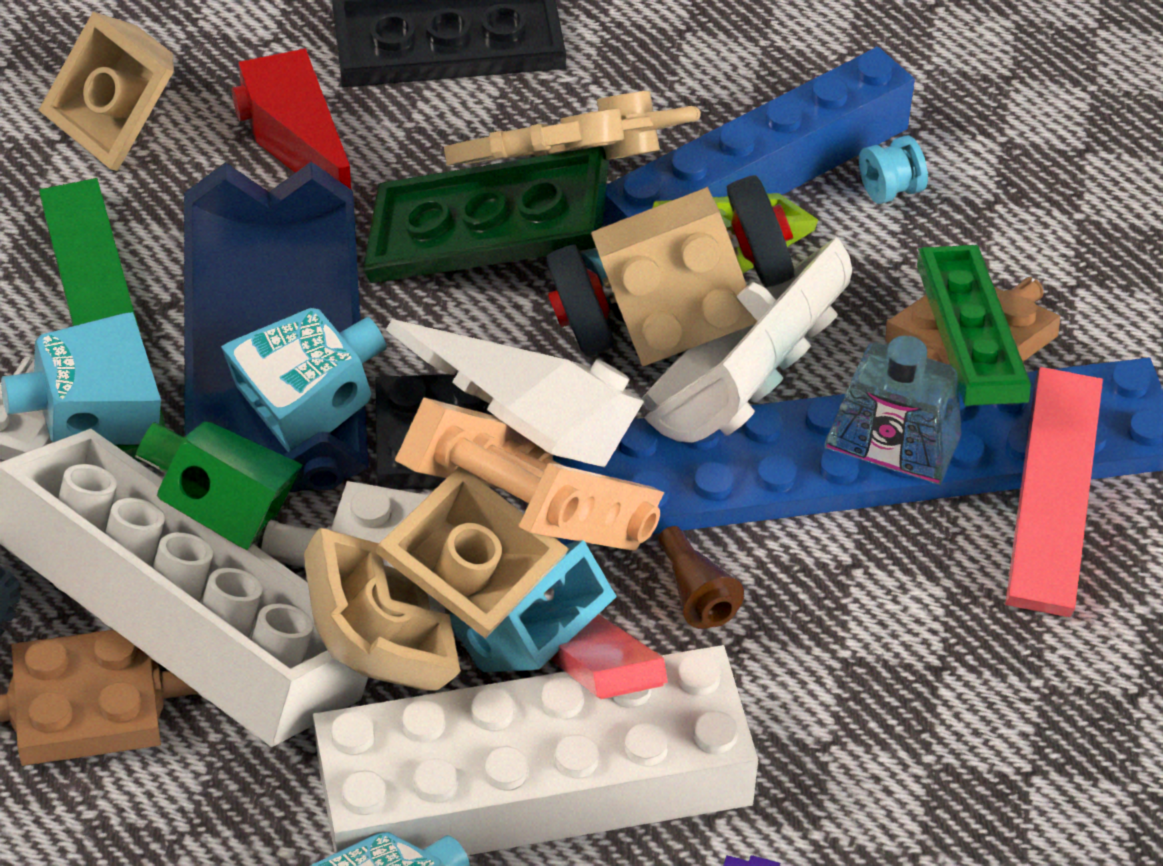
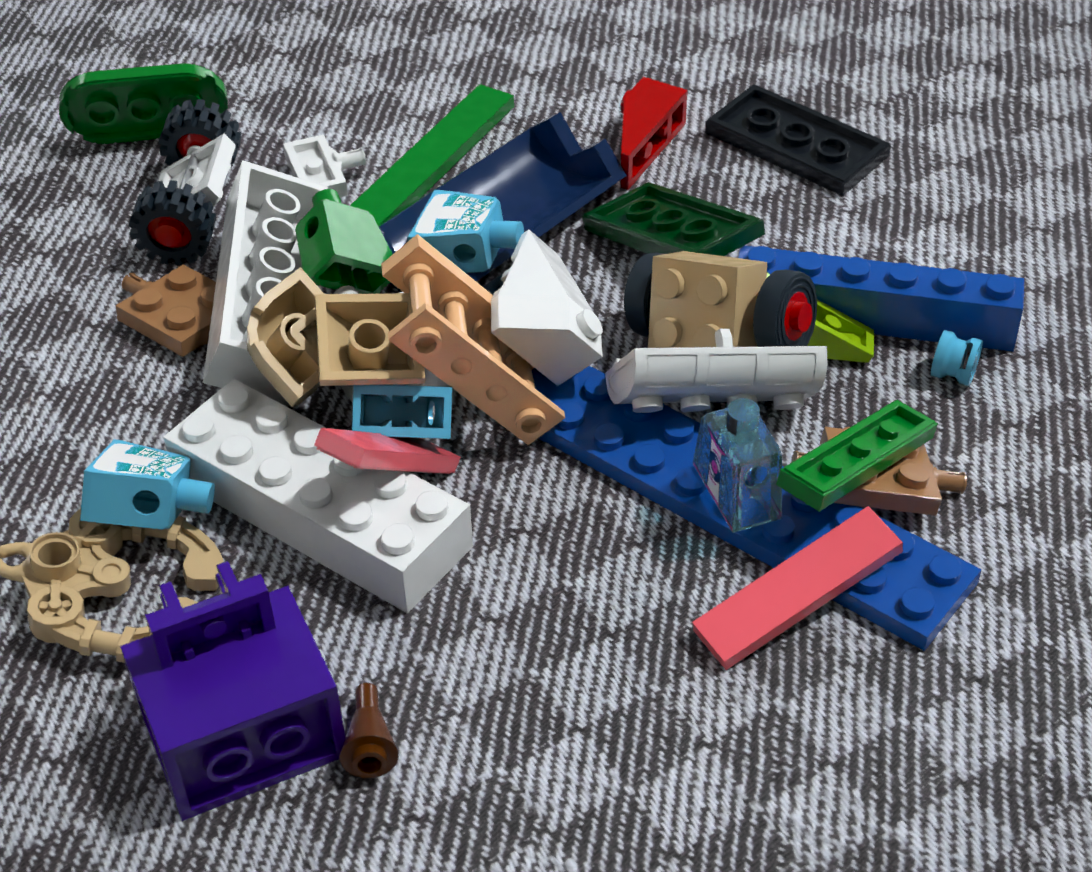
camera: 50 degrees right, 5 degrees down
(89, 380) = (363, 167): medium azure torso -> none
(108, 87) = (578, 56): tan slope -> none
(621, 125) = (782, 215): tan piece -> none
(705, 590) = (526, 486): reddish brown cone -> none

